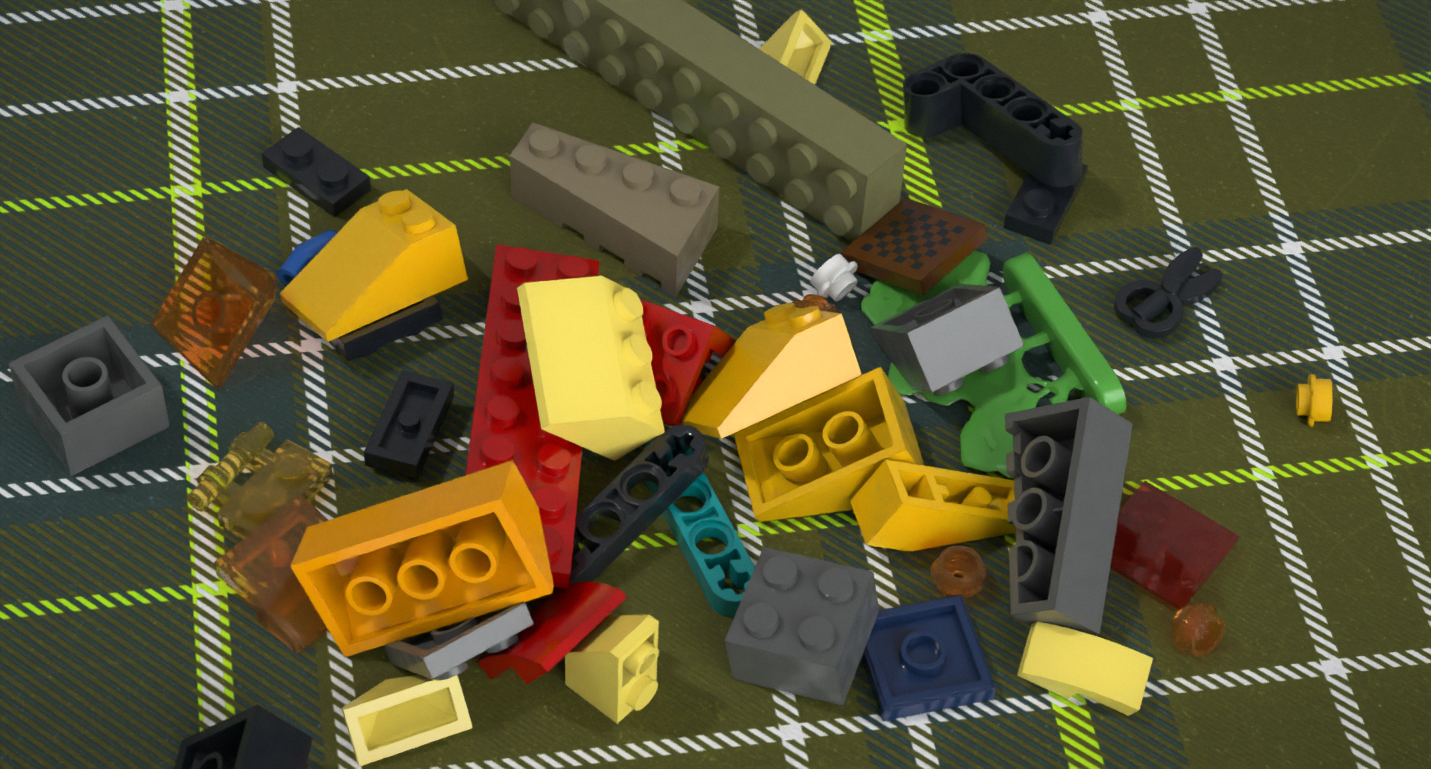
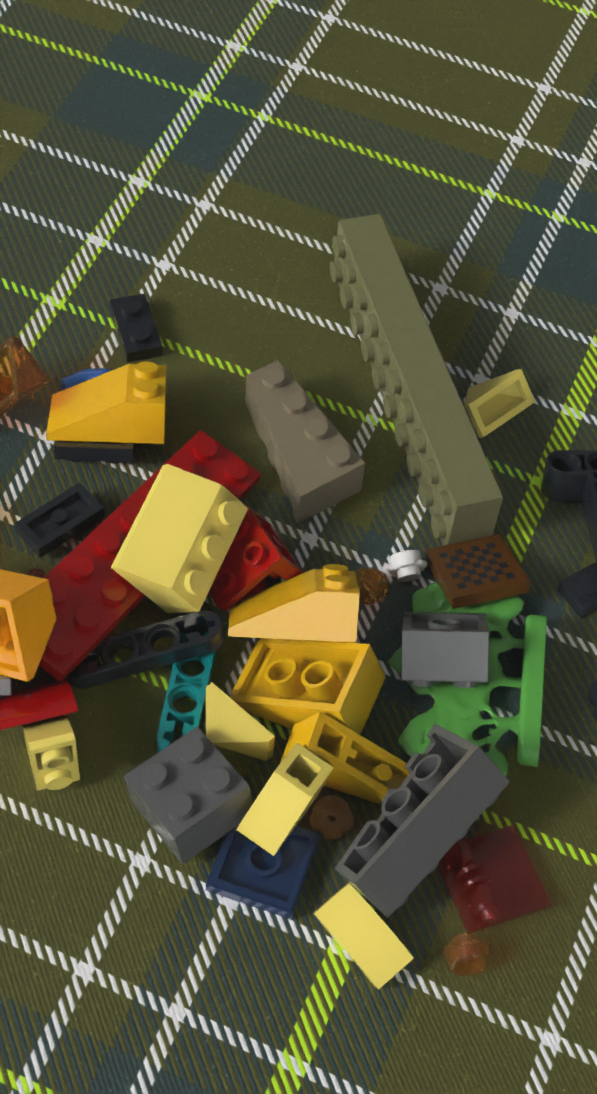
camera: 30 degrees right, 5 degrees up
(789, 529) = (234, 728): none -> light yellow slope
(911, 569) = (285, 798): none -> light yellow slope

